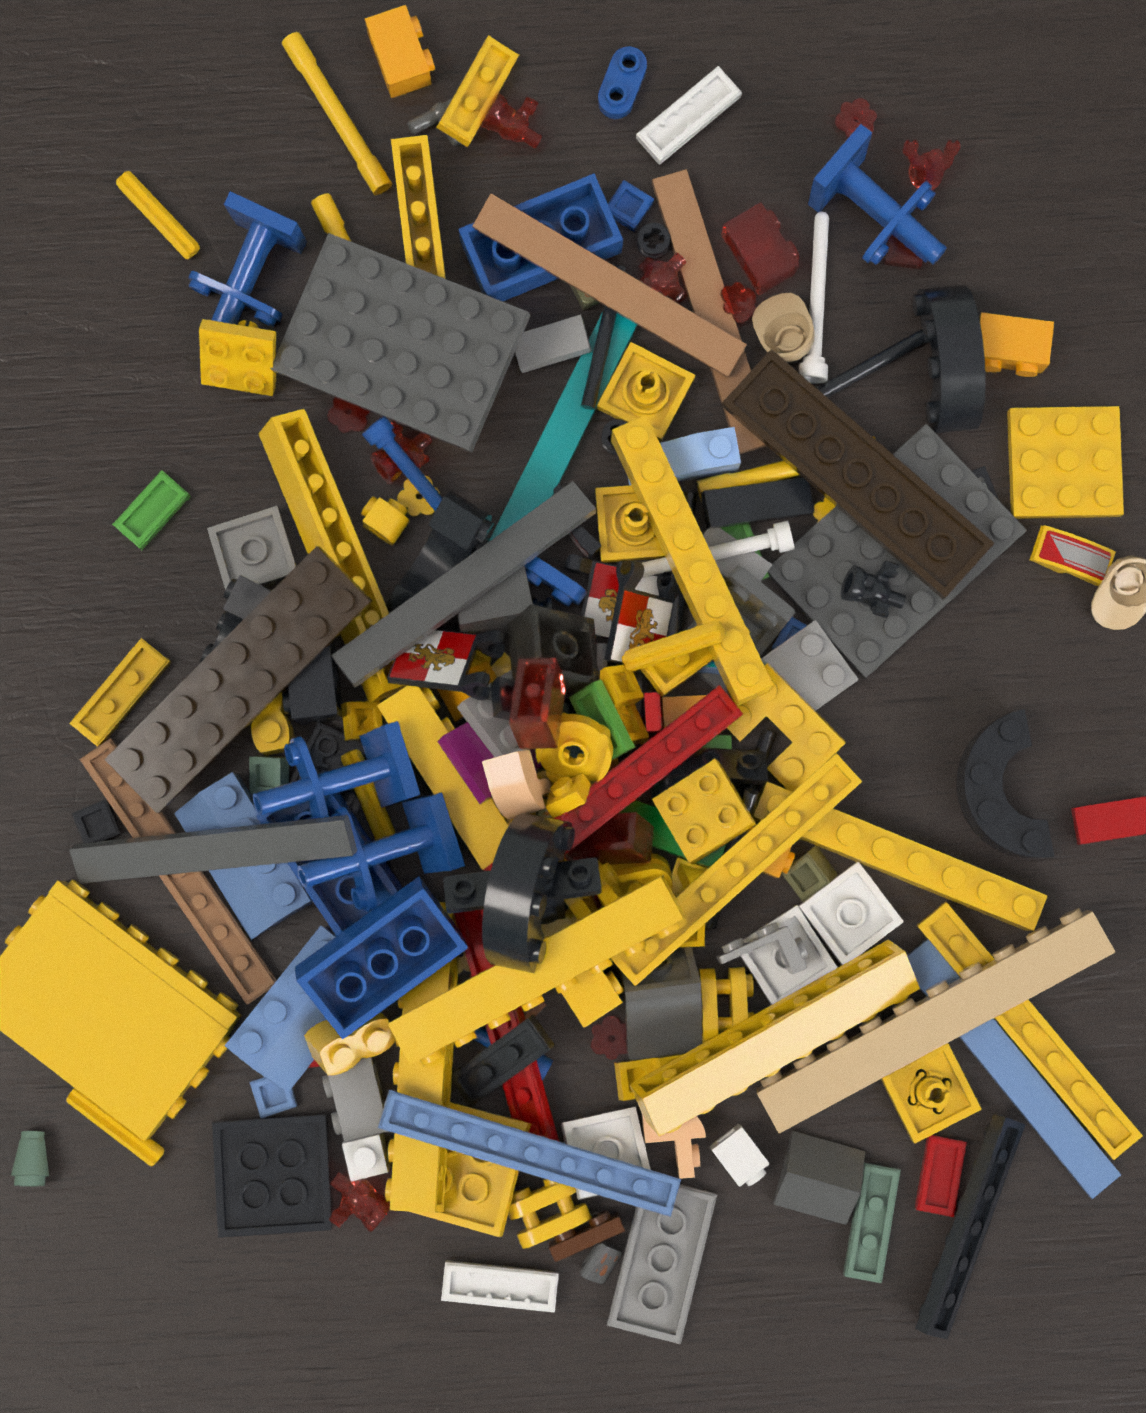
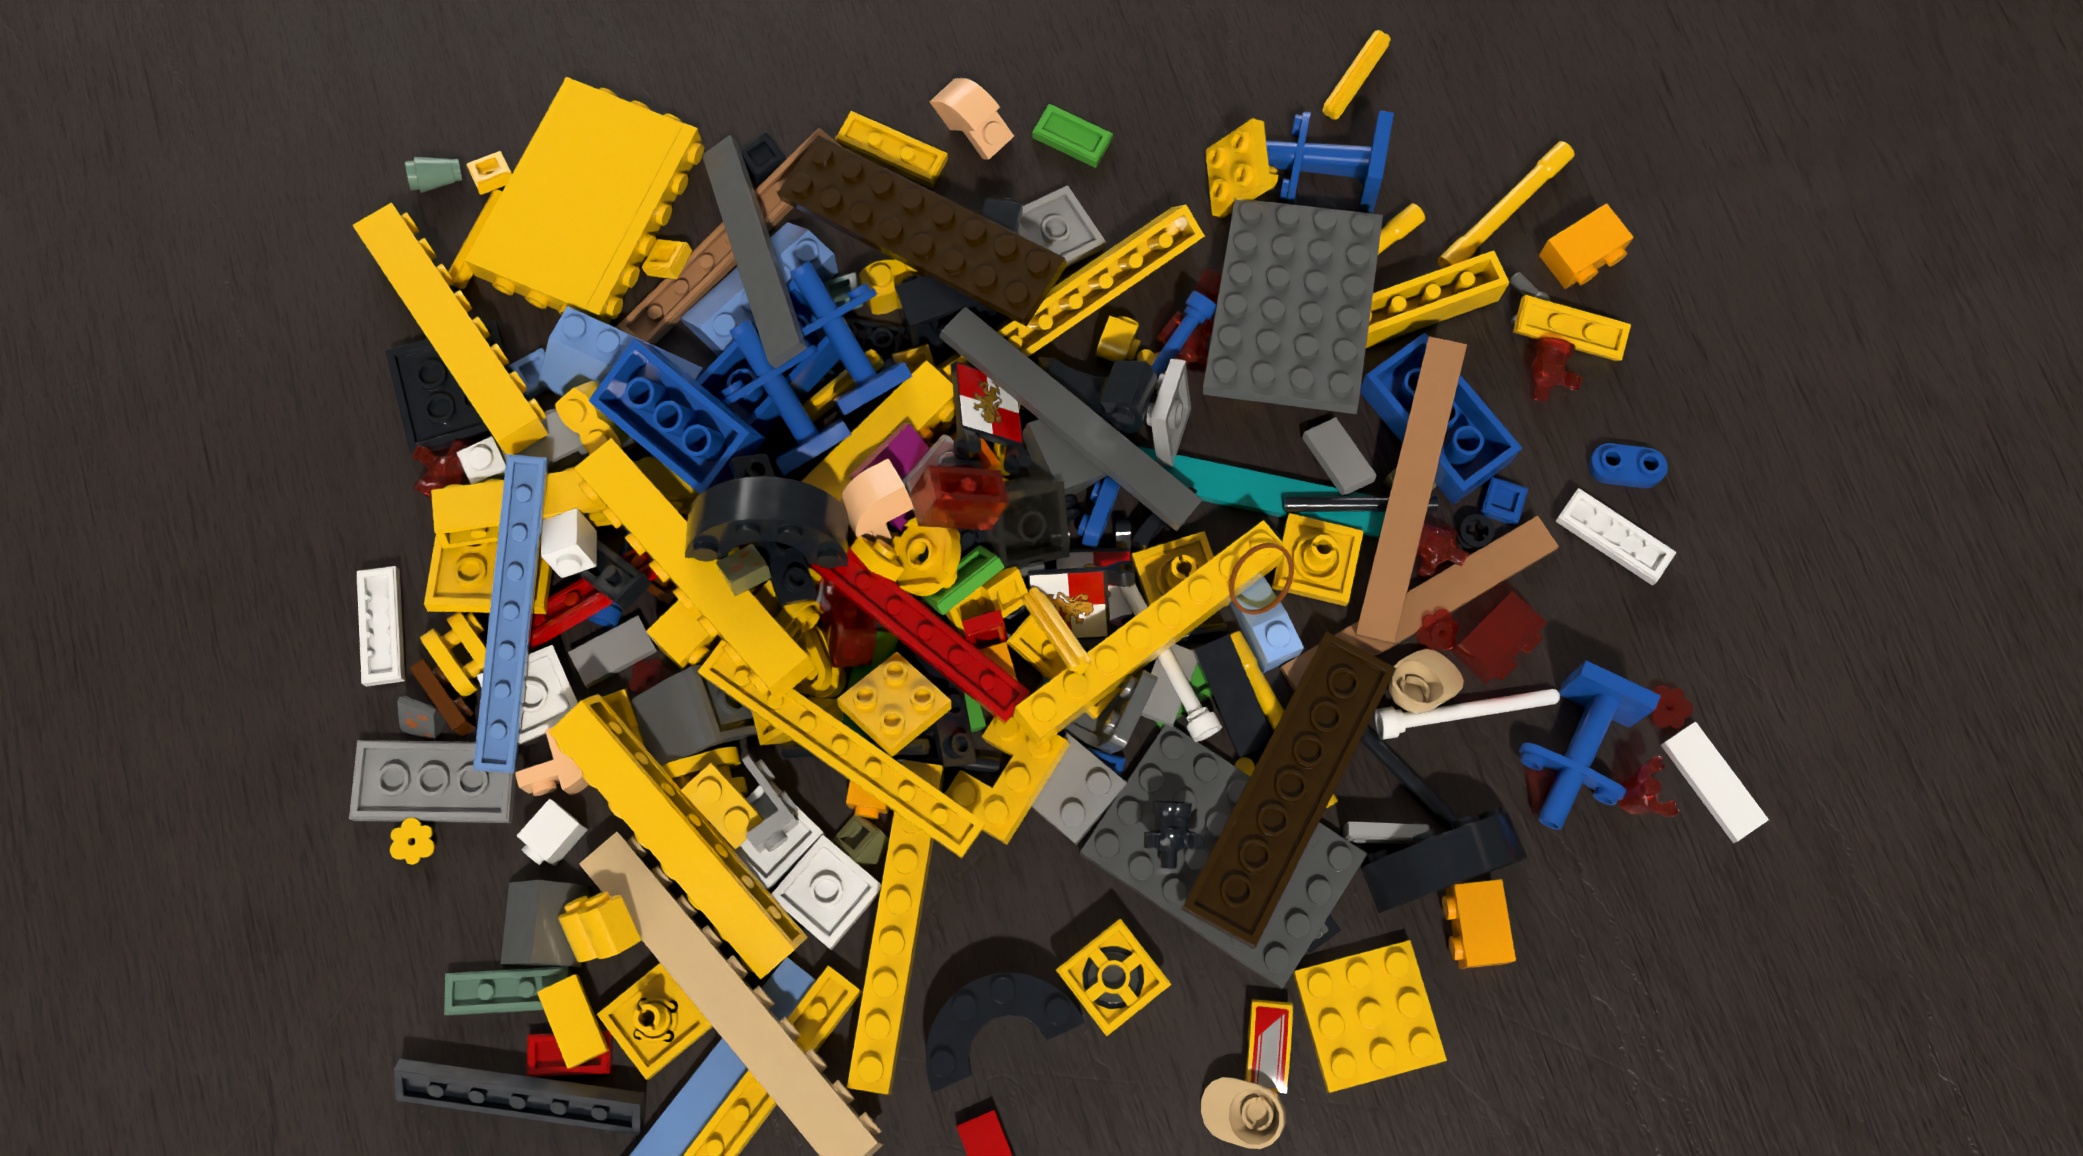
camera: 80 degrees right, 10 degrees down
(45, 1101) = (489, 172): none -> yellow tile
(107, 602) = (972, 110): none -> light nougat brick
(187, 939) = (667, 259): none -> yellow tile
(215, 1168) = (451, 331): none -> yellow brick
(472, 1087) = (569, 543): none -> white brick
(484, 493) = (1170, 411): none -> light grey plate
(561, 920) = (744, 569): none -> olive slope
(577, 1068) = (612, 651): none -> light grey tile
(650, 455) = (1281, 595): none -> dark orange piece
(720, 1296) = (402, 846): none -> yellow plant
(756, 990) = (722, 804): none -> yellow plate
(843, 1125) = (598, 926): none -> yellow brick
(913, 403) = (1382, 833): none -> light grey tile
(916, 1165) = (573, 1021): none -> yellow tile
(931, 101) = (1714, 782): none -> white tile
(986, 676) = (1113, 977): none -> yellow piece

